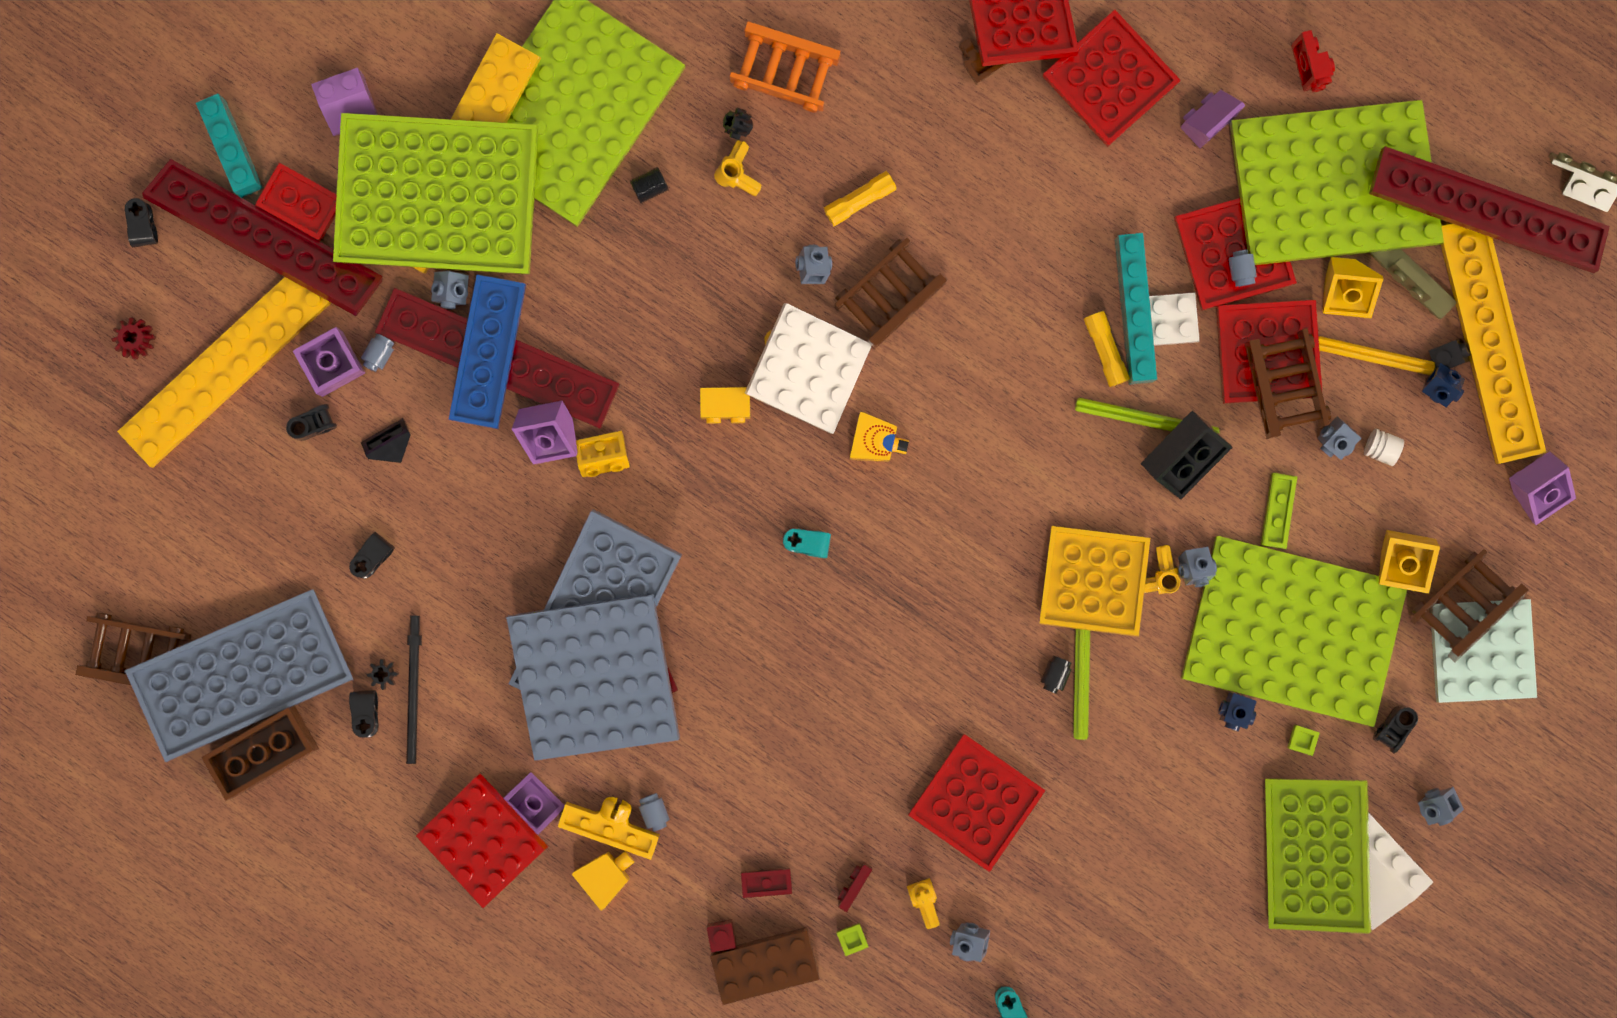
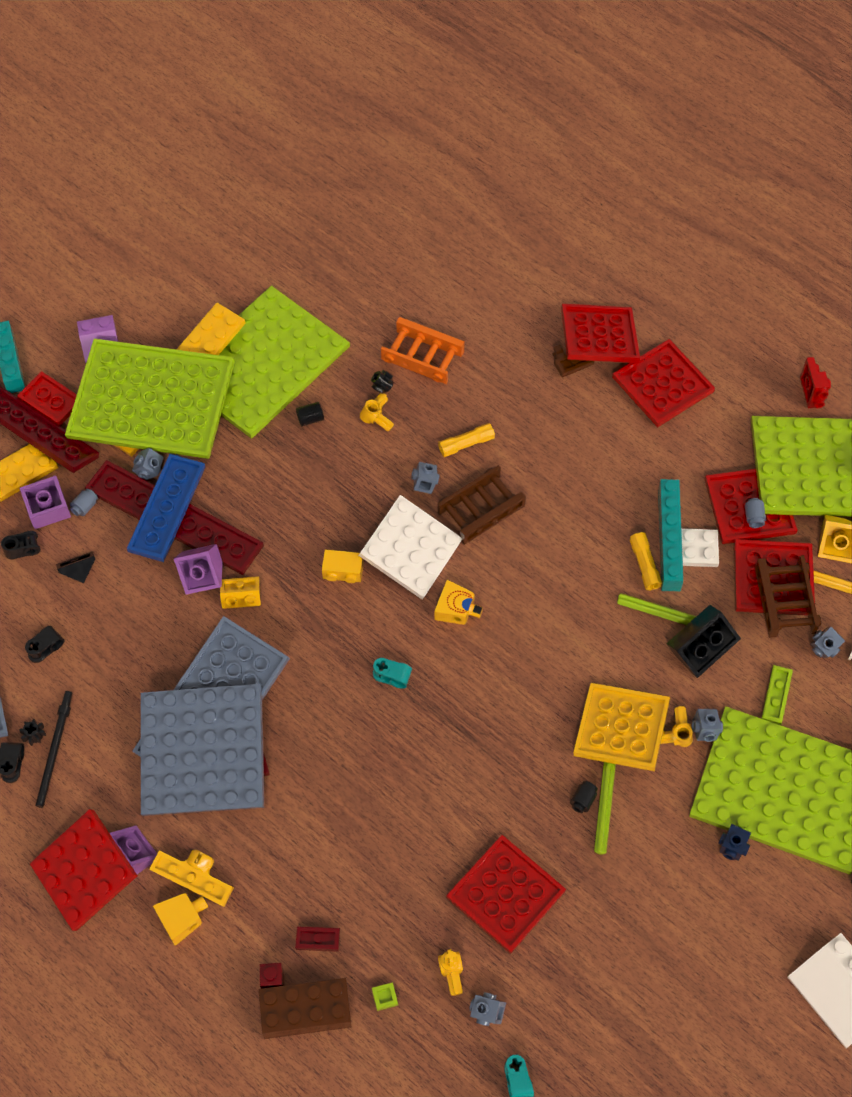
camera: 10 degrees right, 25 degrees down
(653, 812) = (232, 867): sand blue brick -> none
(847, 895) = (387, 956): dark red plate -> none
(1211, 117) = (737, 413): medium lavender slope -> none
(1303, 740) = (790, 875): lime plate -> none
(1318, 855) = (799, 969): lime plate -> none

